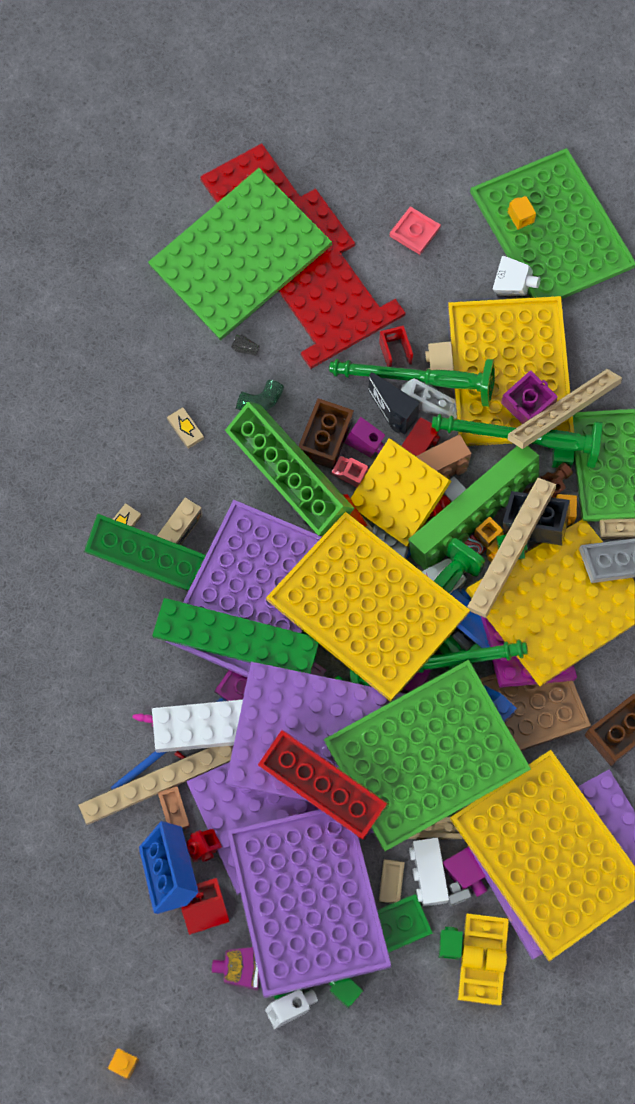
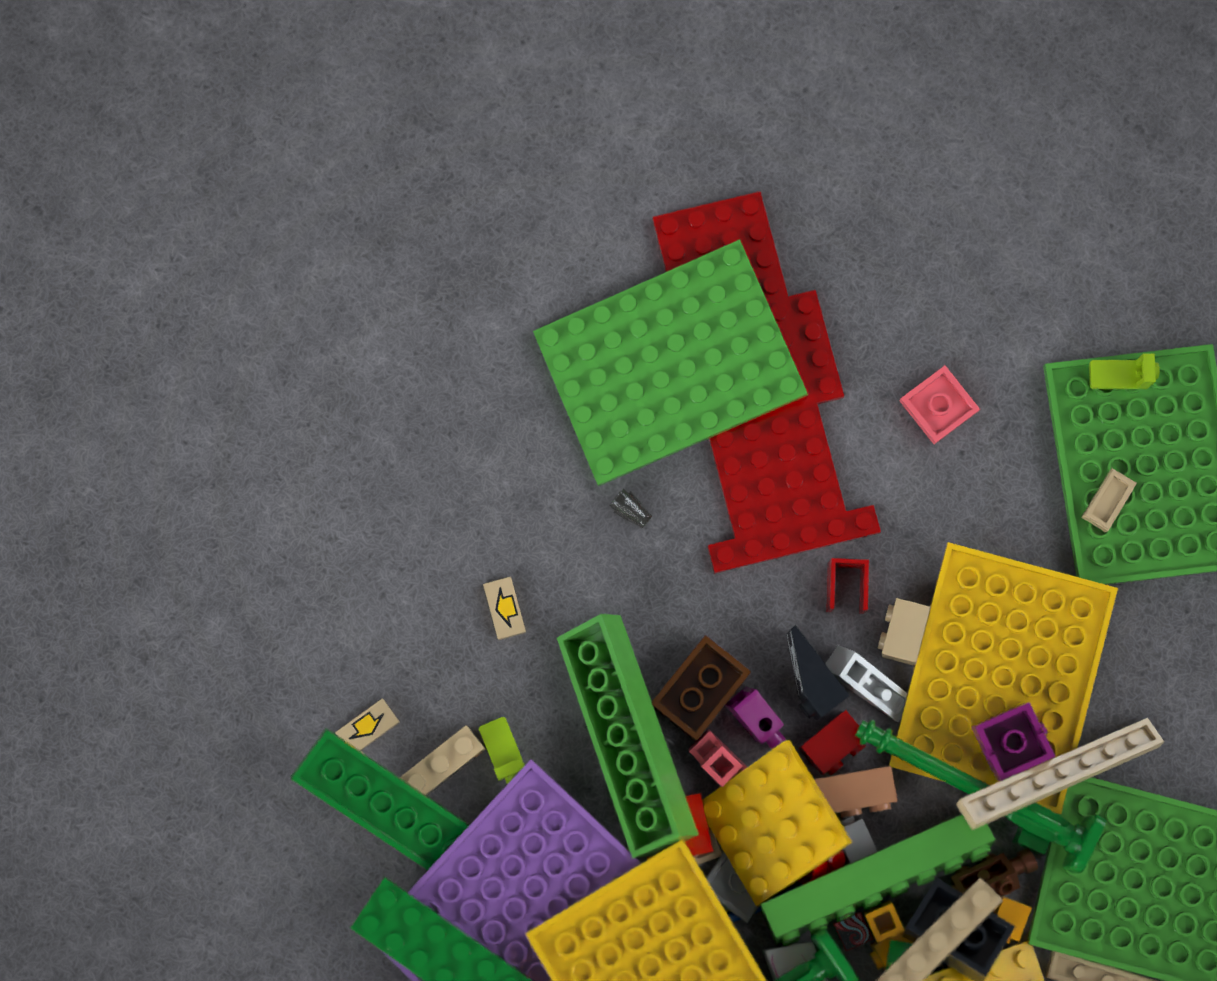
camera: 20 degrees right, 10 degrees up
(212, 508) = (502, 749): none -> lime bracket
(267, 398) = (629, 604): clear green cylinder -> none
(483, 382) = (892, 661): green piece -> none
(514, 278) = (1060, 533): white torso -> none
(521, 177) = (1124, 373): none -> lime bracket
(521, 212) = (1106, 431): light orange brick -> none
(537, 251) = (1109, 500): none -> tan tile

